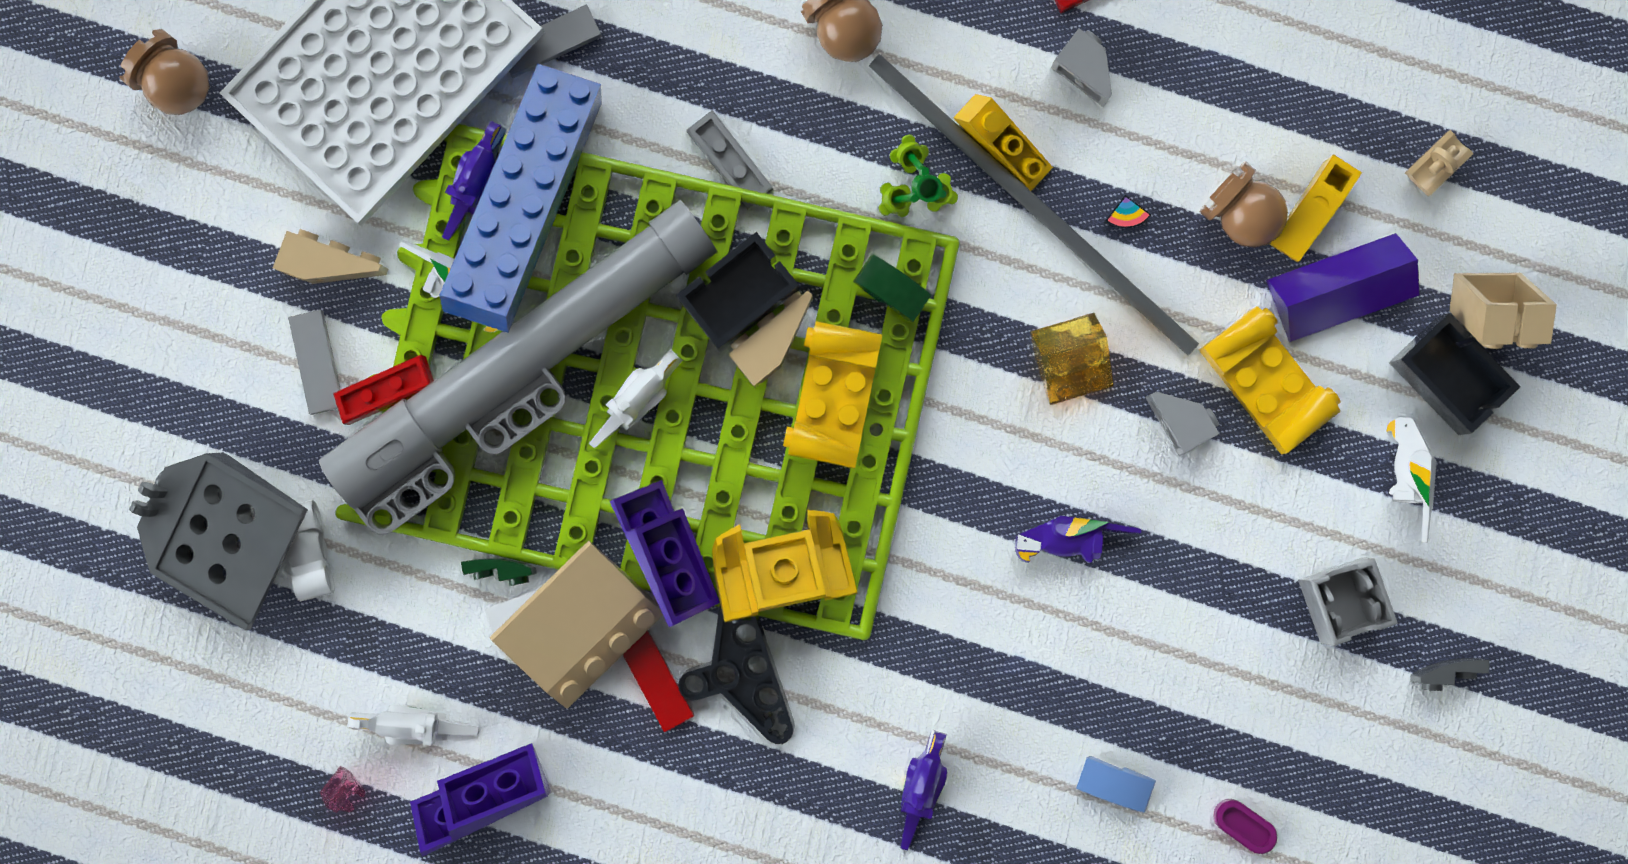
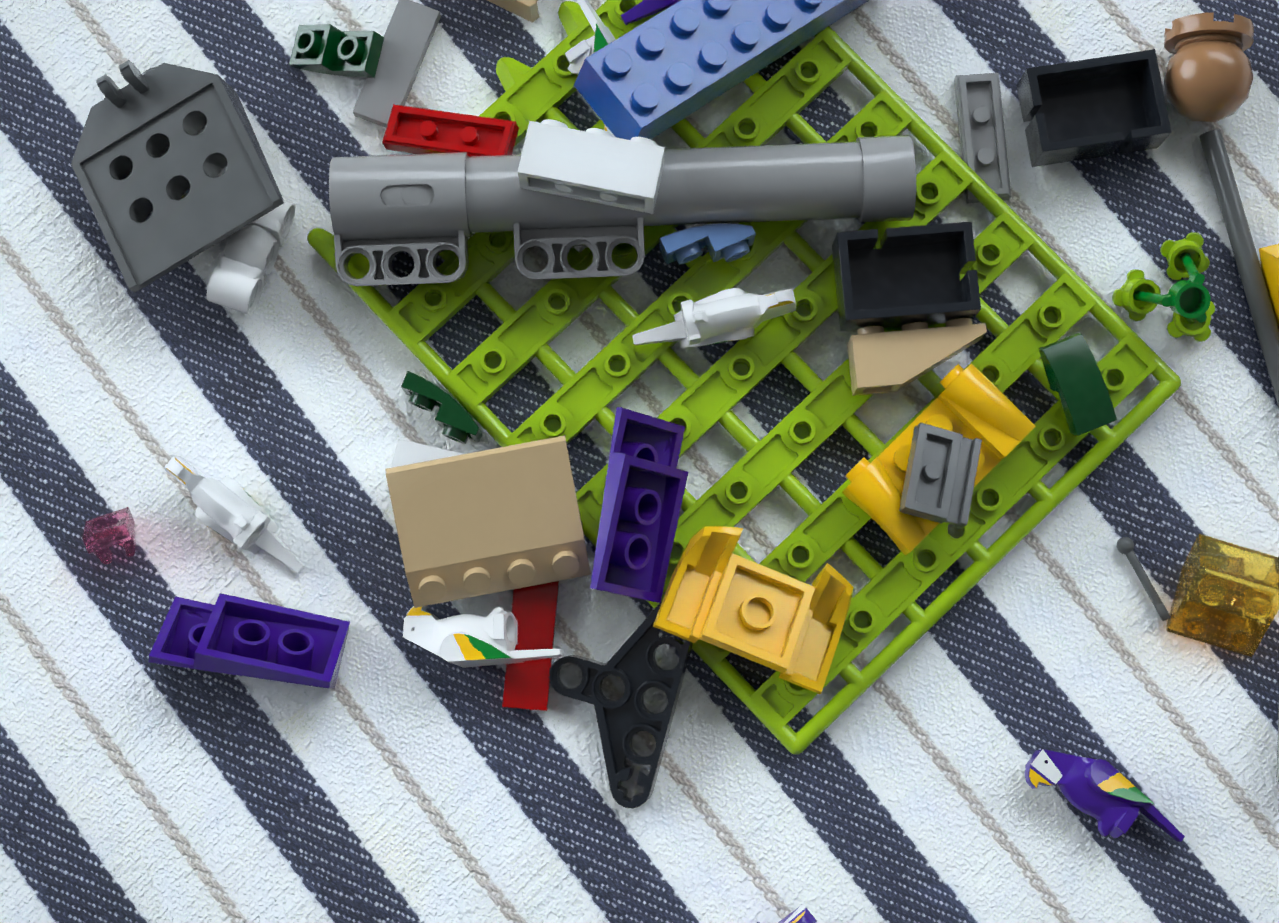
camera: 30 degrees right, 5 degrees down
(271, 380) = (336, 52): none -> dark green slope
(490, 359) = (591, 165): none -> white brick
(607, 344) = (721, 241): none -> medium blue slope
(615, 703) = (470, 638): none -> white animal
(788, 96) = (1093, 107): none -> black piece
(842, 407) = (940, 475): none -> dark grey plate
(990, 368) = (1125, 546): none -> dark grey hinge

